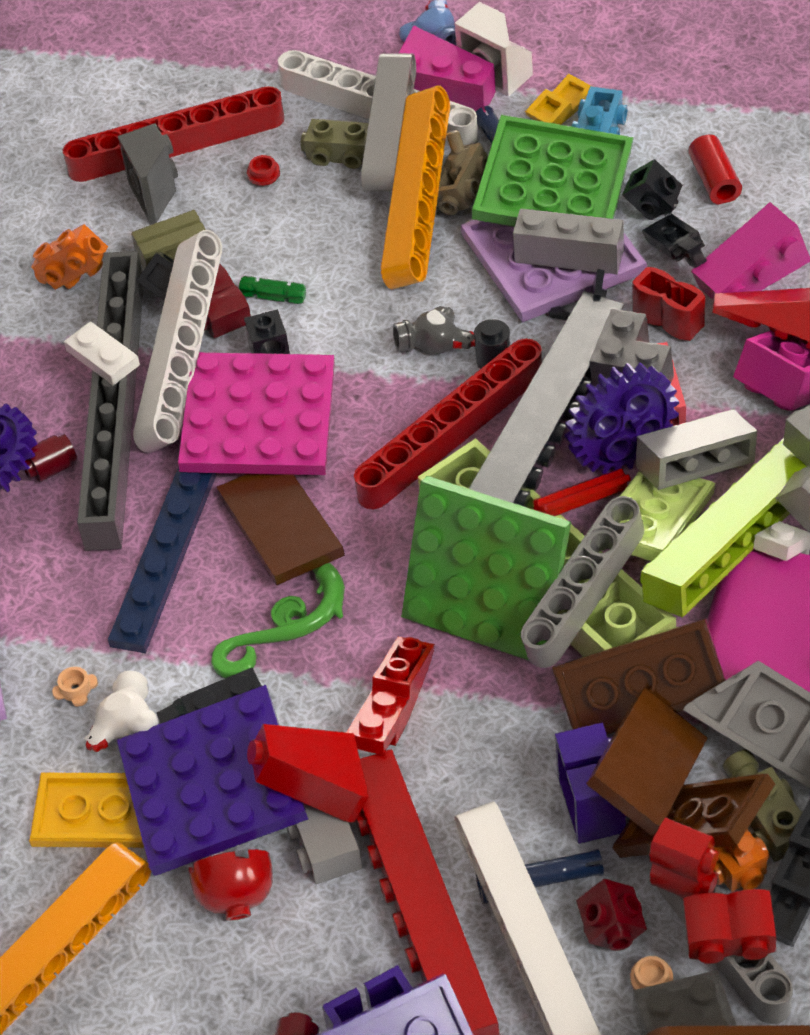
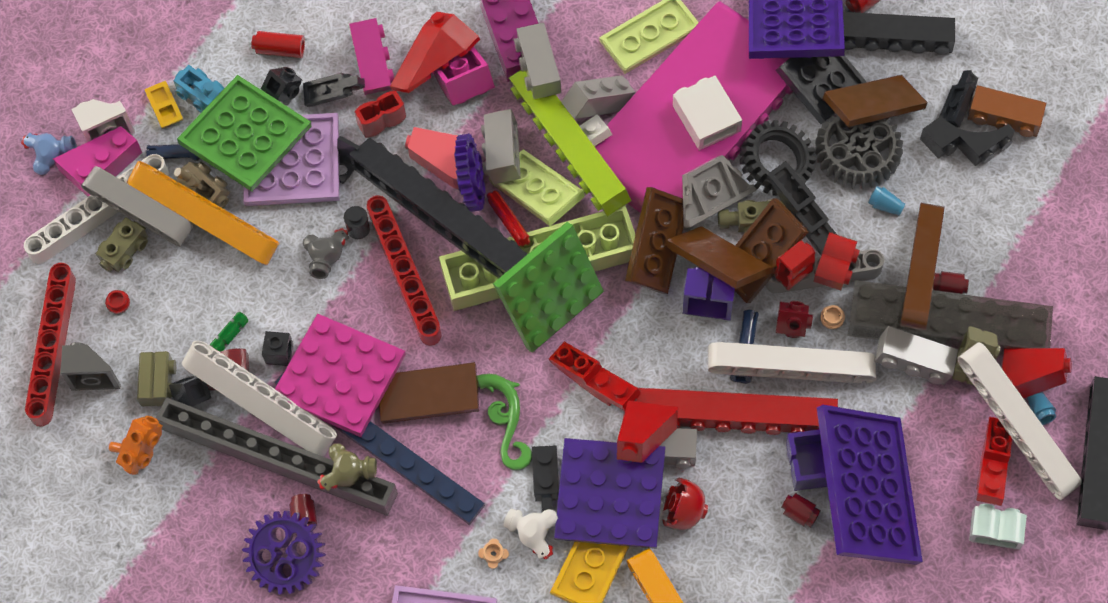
camera: 70 degrees left, 15 degrees up
(101, 353) = (250, 446): white plate -> none
(107, 456) = (346, 468): none -> olive animal
(568, 241) = (304, 145): light grey brick -> none
(582, 598) = (585, 227): light grey beam -> none
(627, 341) = (425, 154): flat silver brick -> none

